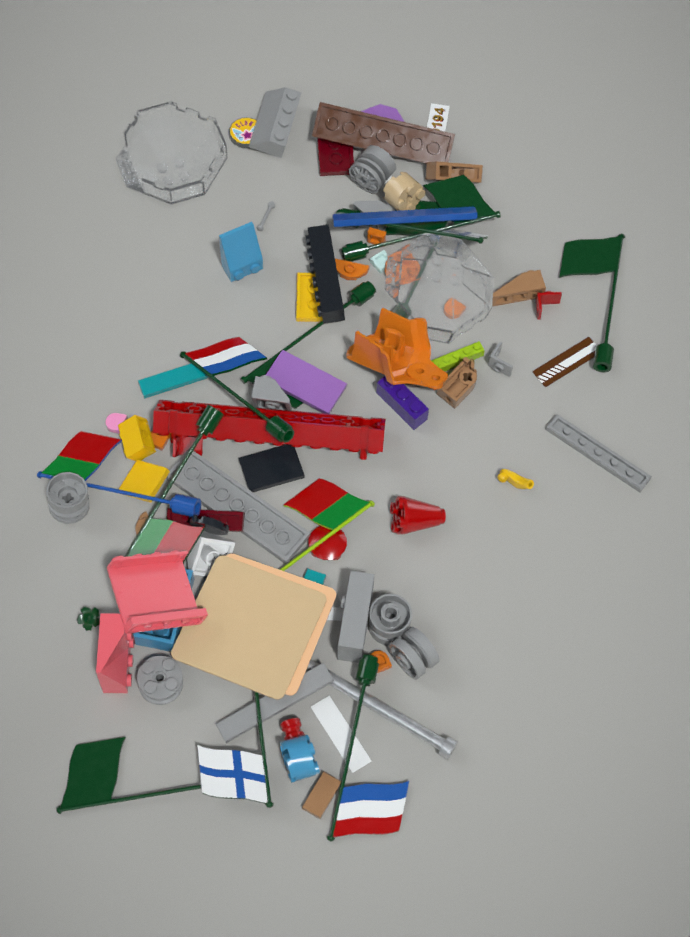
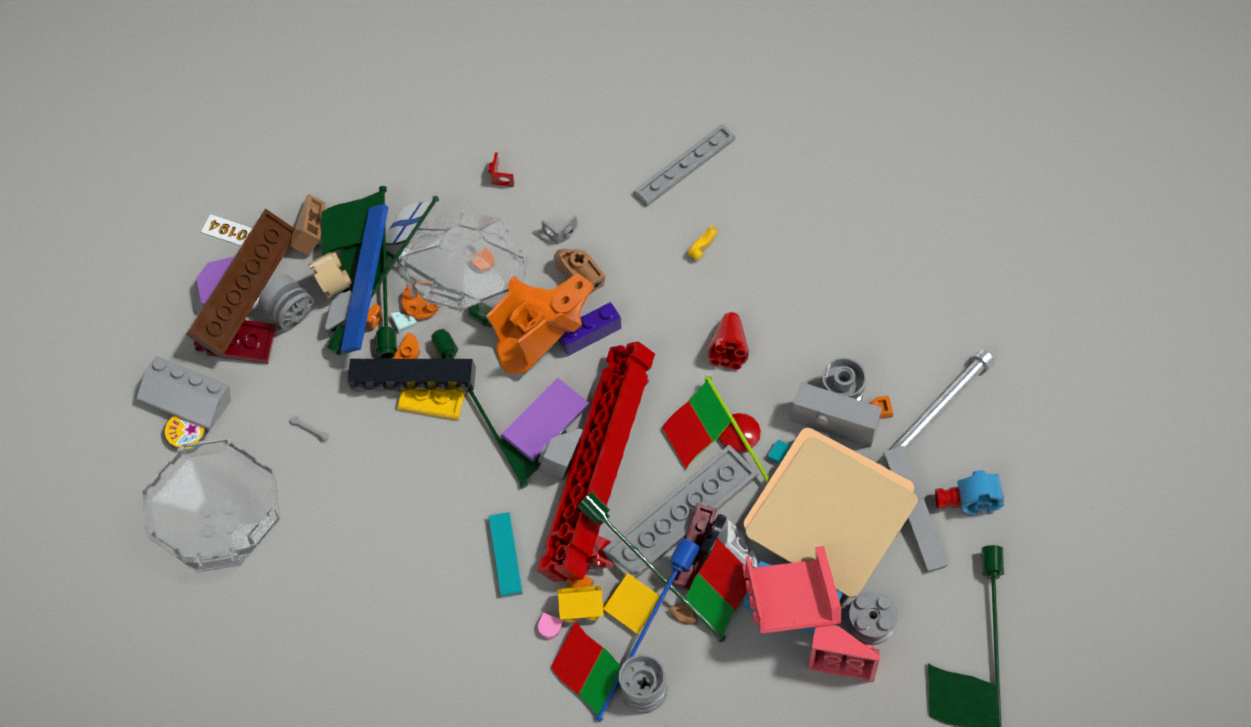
camera: 75 degrees left, 0 degrees up
(89, 618) = (788, 682): dark green plant -> none
(226, 357) = (494, 496): flag -> none
(236, 773) = (989, 554): white flag -> none
(240, 252) = (368, 455): dark azure slope -> none
(271, 468) = (641, 474): black tile -> none
(321, 795) = (1016, 484): medium nougat tile -> none
(340, 733) = (951, 457): white sticker -> none
(367, 807) = (1032, 439): flag -> none
(414, 653) = (885, 367): light grey wheel -> none
(454, 358) = (545, 264): lime piece -> none
(520, 288) = (474, 183): medium nougat slope -> none
(566, 362) = (571, 170): reddish brown sticker -> none
(595, 258) = (453, 114): dark green flag -> none

